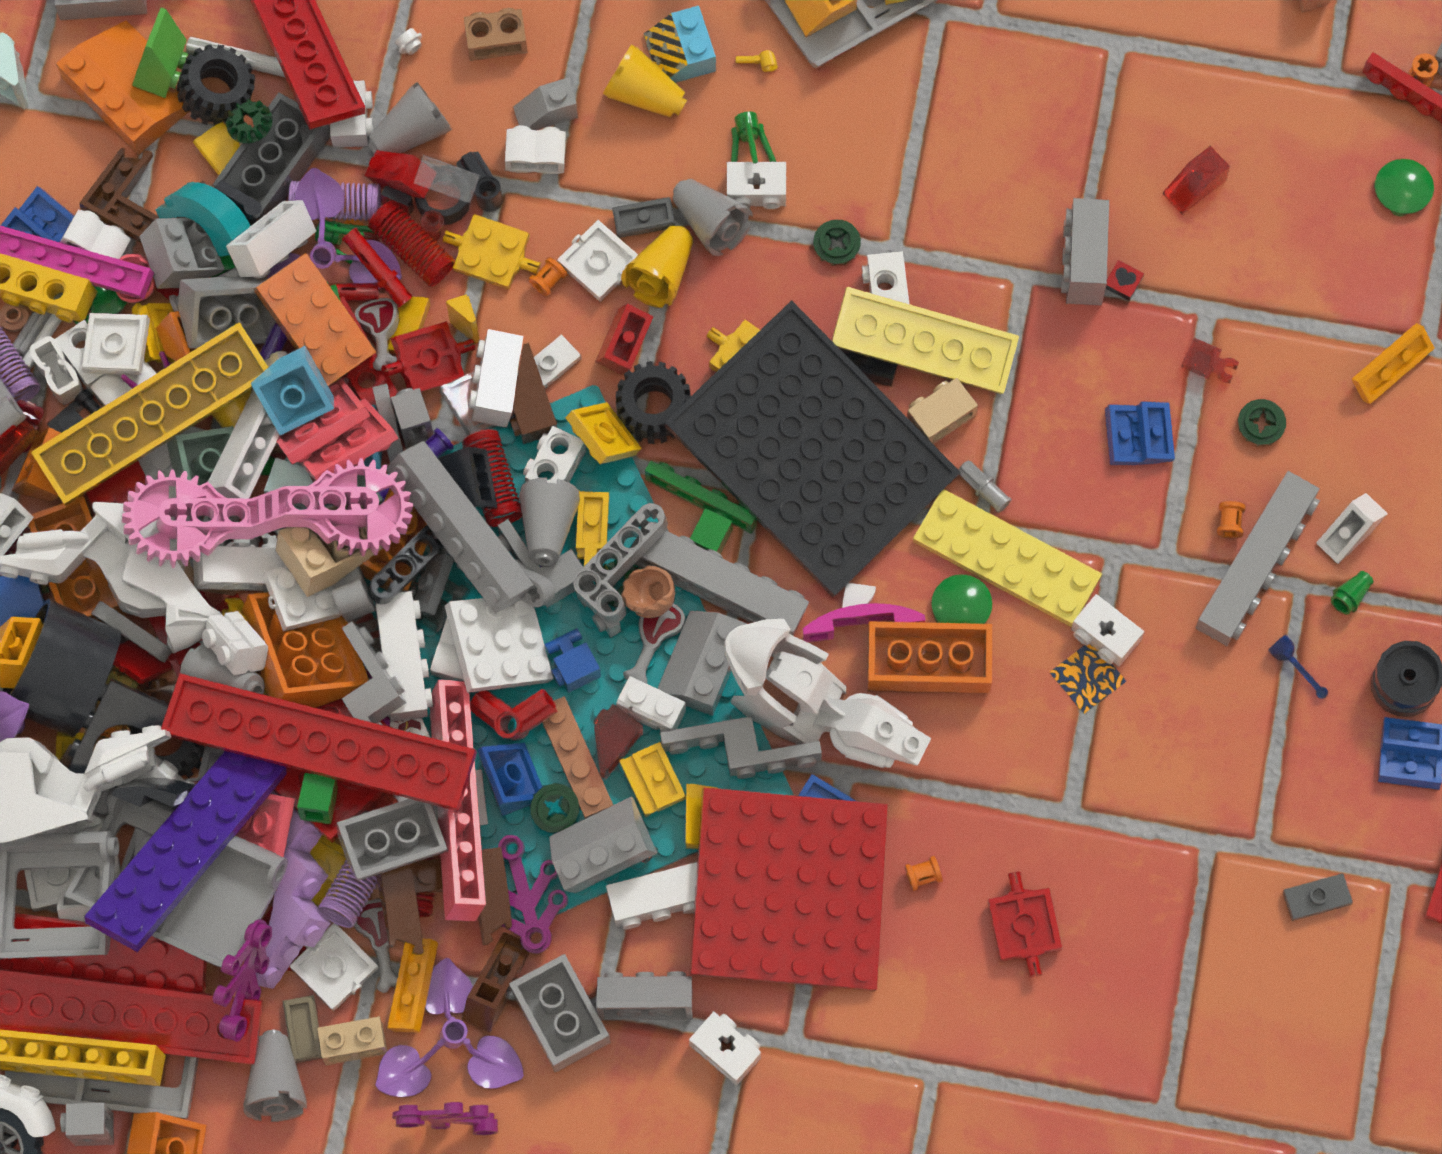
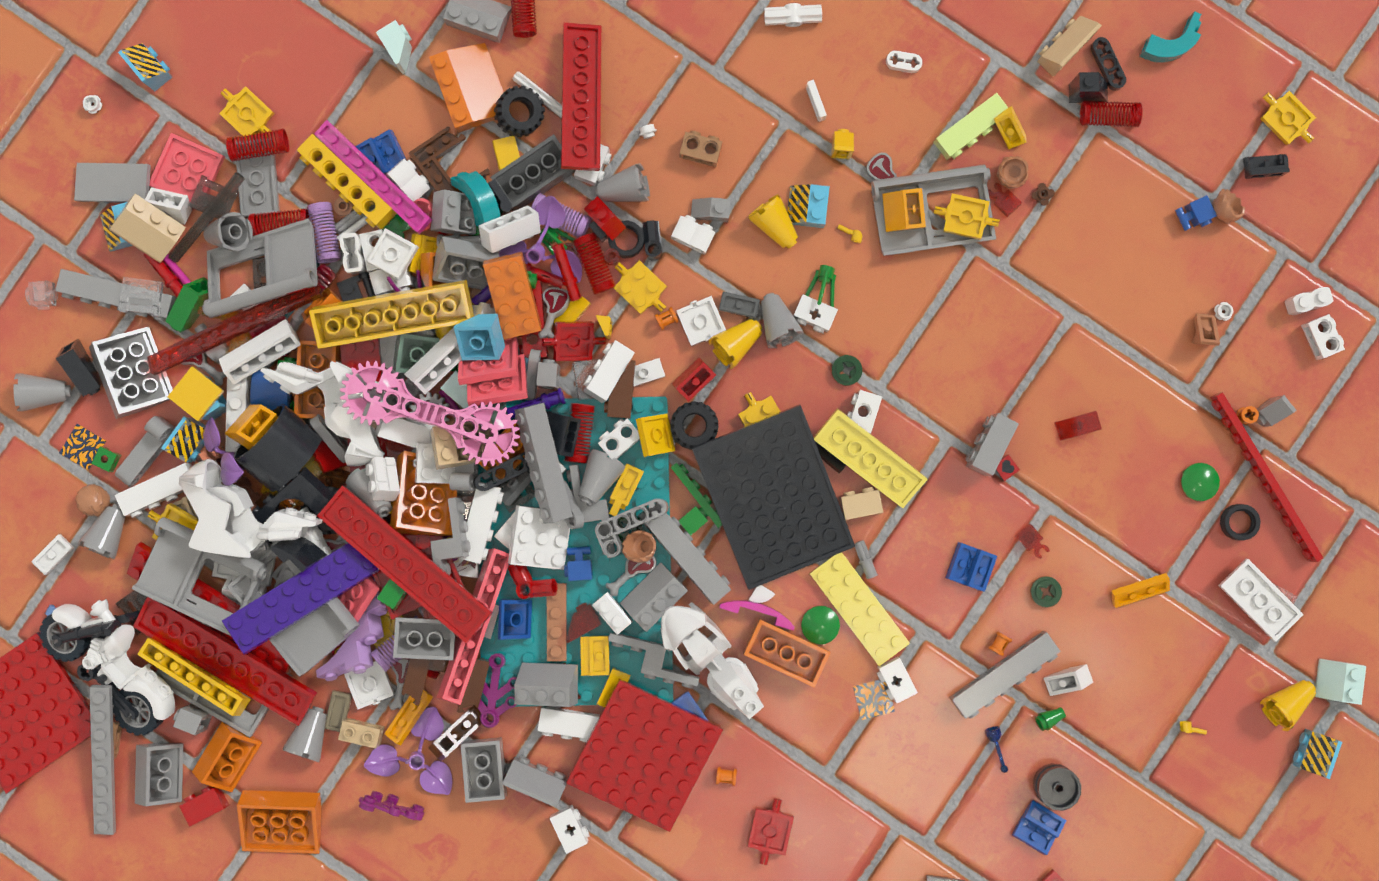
camera: 25 degrees right, 15 degrees up
(161, 57) = (493, 80): bright green slope -> none
(234, 604) = (395, 450): yellow hand -> none
(240, 130) = (534, 150): dark green gear -> none
(244, 980) = (305, 681): magenta plant -> none
(446, 179) = (629, 235): clear panel -> none
(556, 821) = (529, 655): dark green gear -> none

